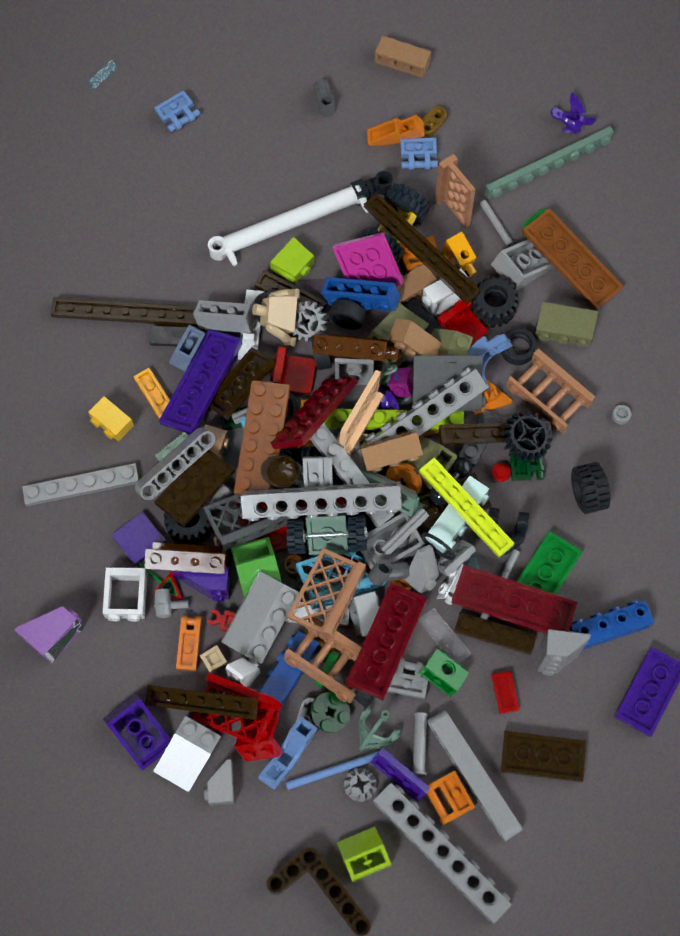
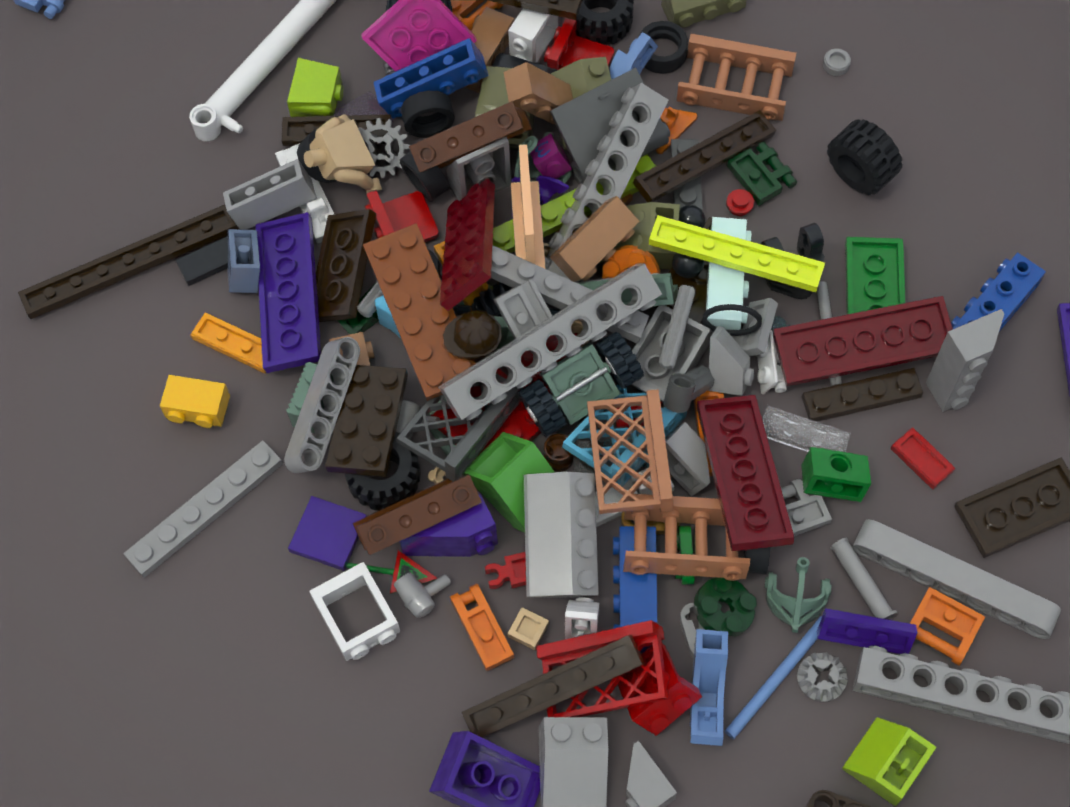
camera: 30 degrees left, 5 degrees down
(51, 632) = (285, 718): medium lavender slope -> none
(520, 422) = (760, 150): black gear -> none

